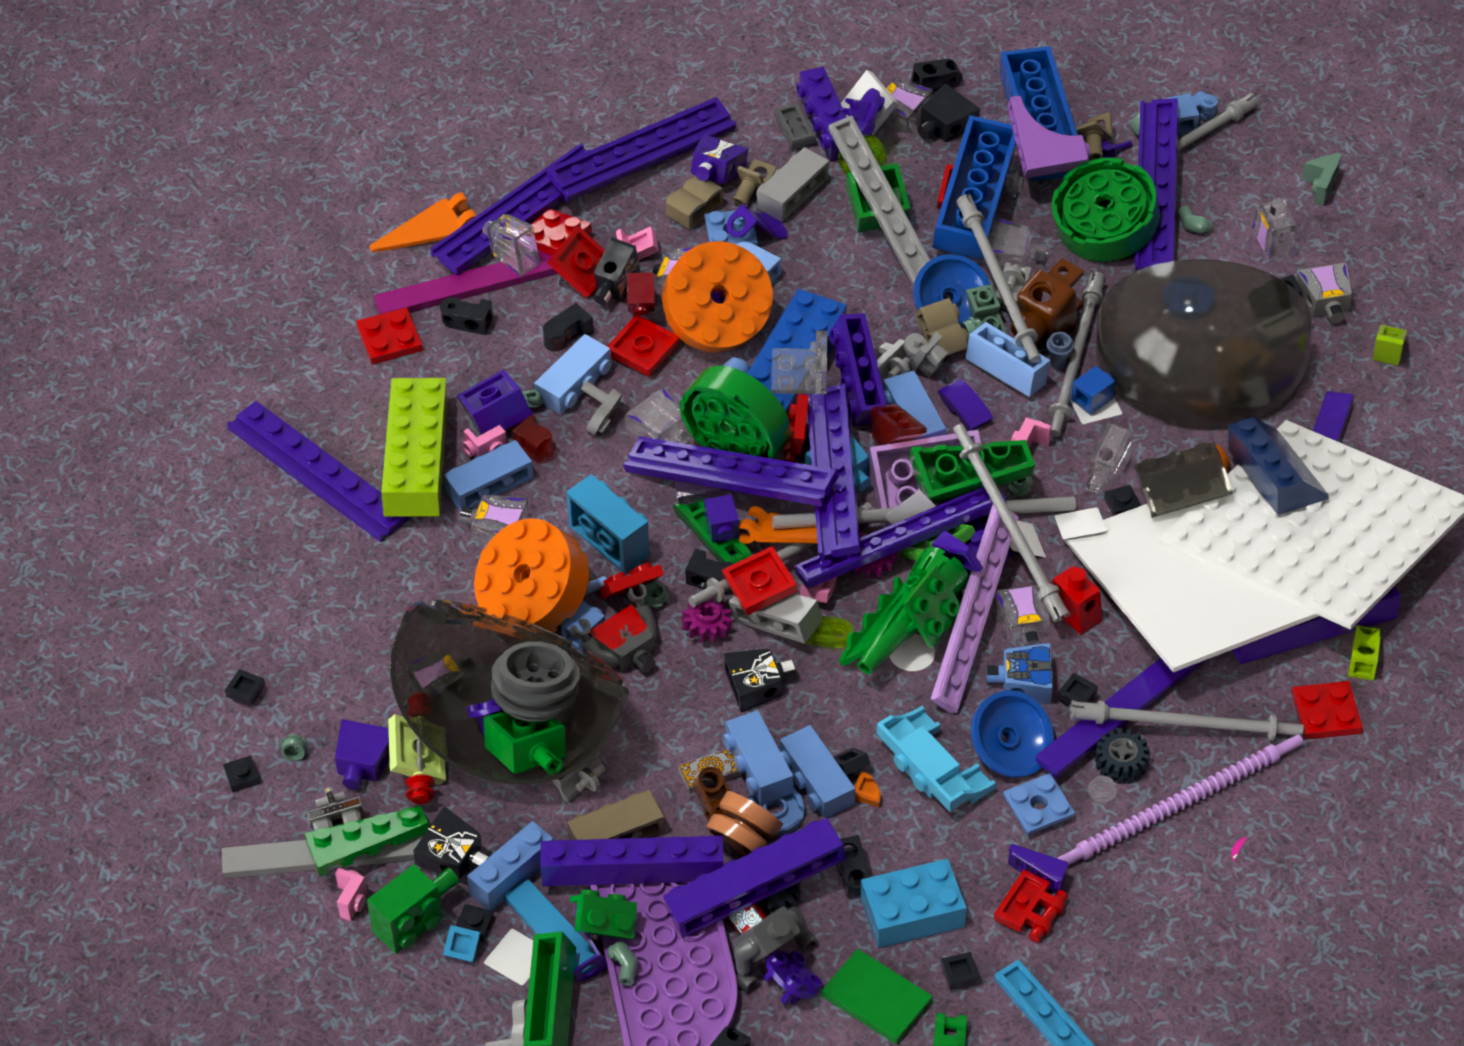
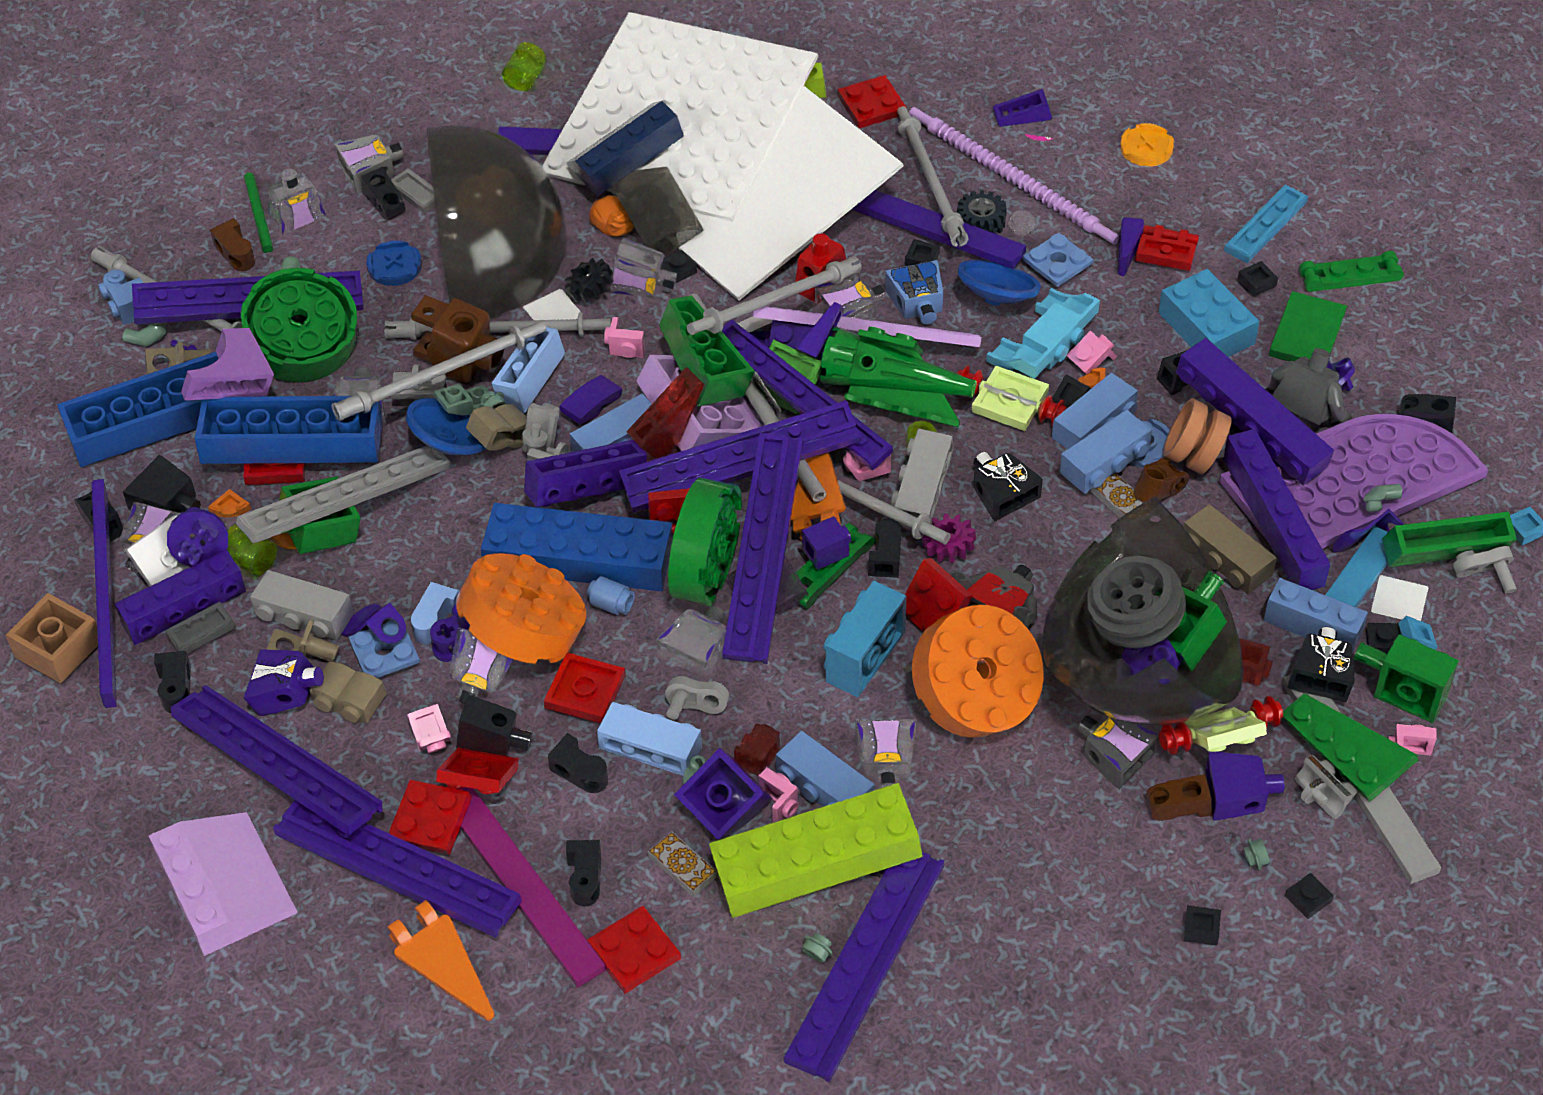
camera: 105 degrees left, 0 degrees up
(336, 438) = (817, 947): none -> sand green plate
(367, 703) = (1180, 798): none -> reddish brown leg
(458, 374) = (682, 864): none -> tile
(484, 799) = (1255, 661): none -> clear red brick
(513, 243) = (473, 836): clear torso -> none
(550, 112) = (221, 878): none -> lavender slope
(604, 915) = (1345, 509): green bracket -> none
(641, 293) = (522, 690): dark red slope -> none
(747, 105) = (176, 677): none -> black leg
(759, 580) = (909, 479): red plate -> none
(801, 369) = (612, 499): clear bracket -> none
(809, 37) = (53, 638): none -> medium nougat brick
(841, 62) = (103, 583): none -> dark purple tile
(860, 709) = (1012, 398): none -> yellowish green plate
(902, 798) = (1091, 352): none -> bright pink bracket
(925, 158) = (229, 504): none -> orange tile
(1059, 349) = (500, 327): sand blue cone -> none
(1080, 523) = (718, 287): white sticker -> none
(1093, 390) = (547, 301): blue brick -> none
(1114, 416) = (589, 280): none -> black gear
(1196, 940) = (1147, 145): none -> light orange tile
(1236, 187) = (232, 246): none -> reddish brown leg
(1249, 214) = (258, 213): none -> green bar
(1278, 857) = (1031, 107): none -> dark purple slope
(1322, 174) = (205, 181): sand green slope -> none
(1389, 344) = (426, 105): lime slope -> none
(1435, 424) = (524, 66): none -> clear neon green wheel

